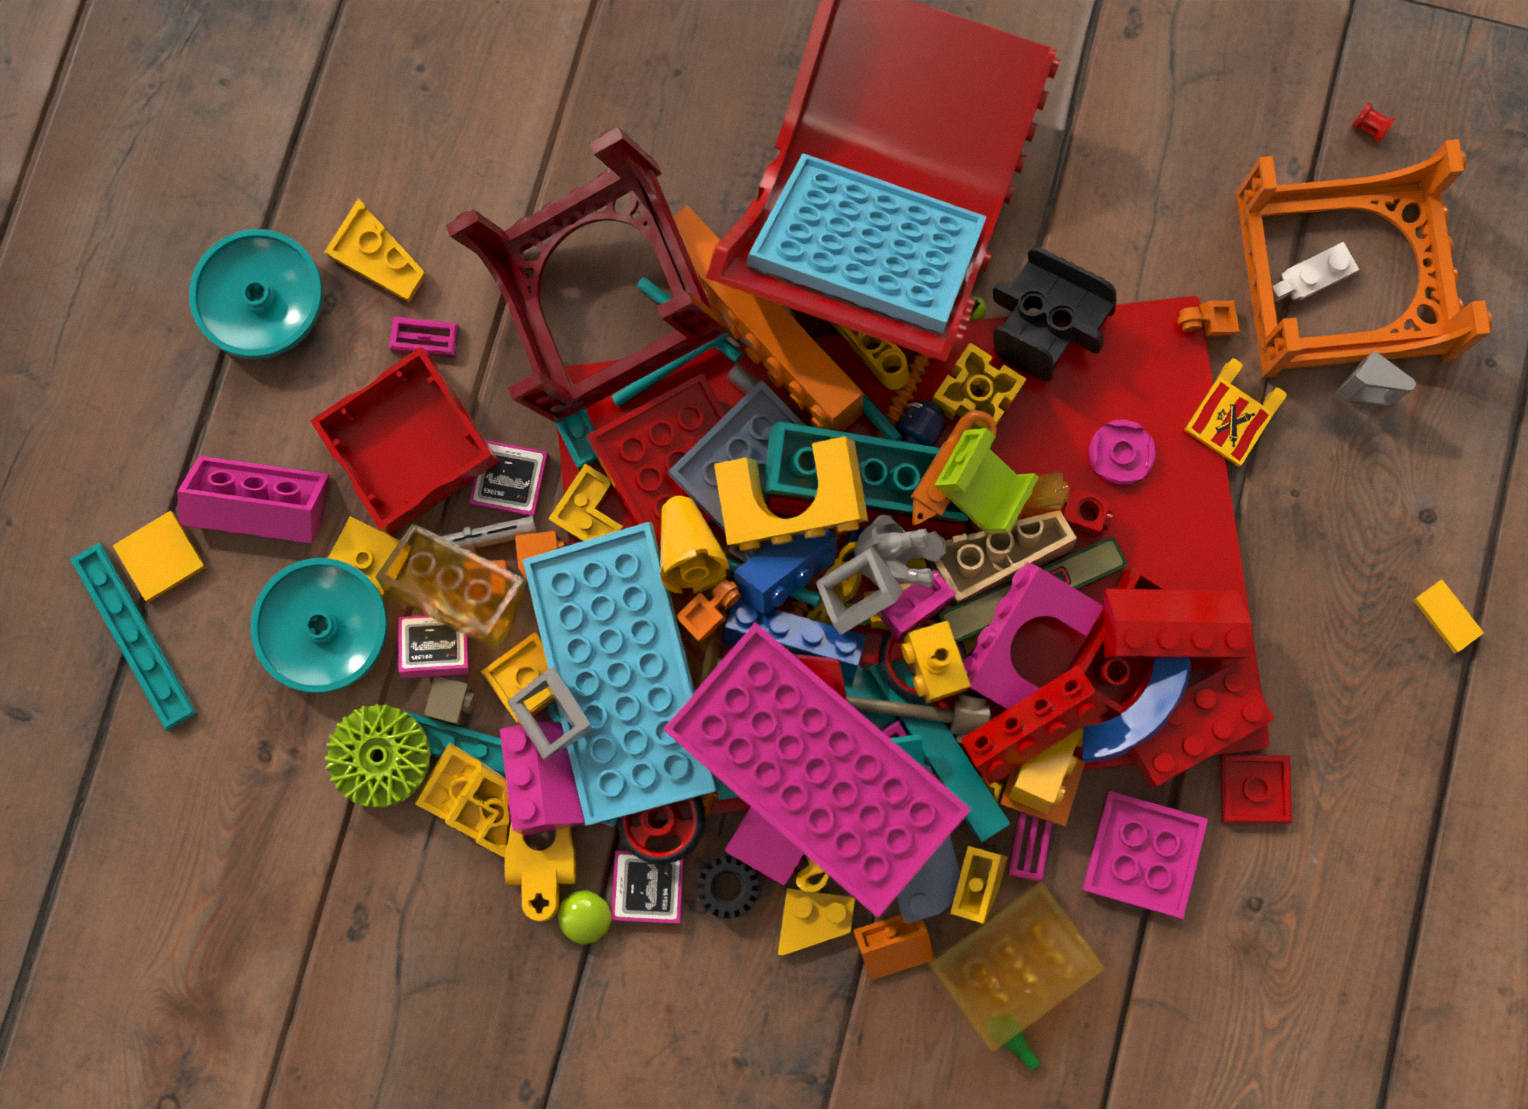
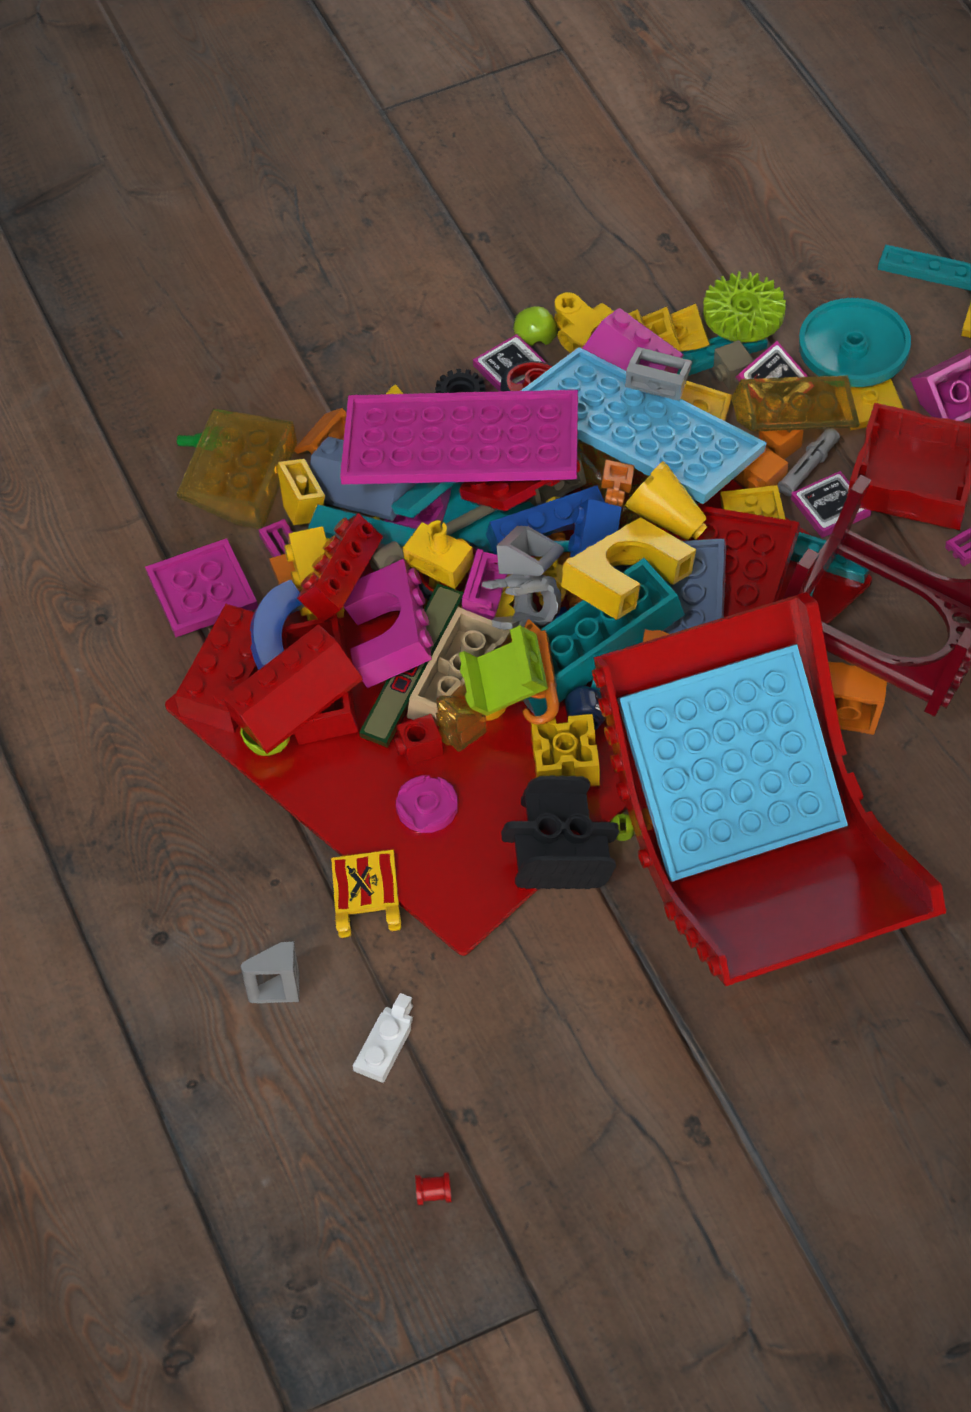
camera: 145 degrees right, 25 degrees down
(1216, 316) = (433, 945): orange plate -> none
(1255, 788) = (151, 678): red tile -> none
(1420, 185) = (251, 1046): orange arch -> none
(1448, 616) = (93, 877): yellow tile -> none

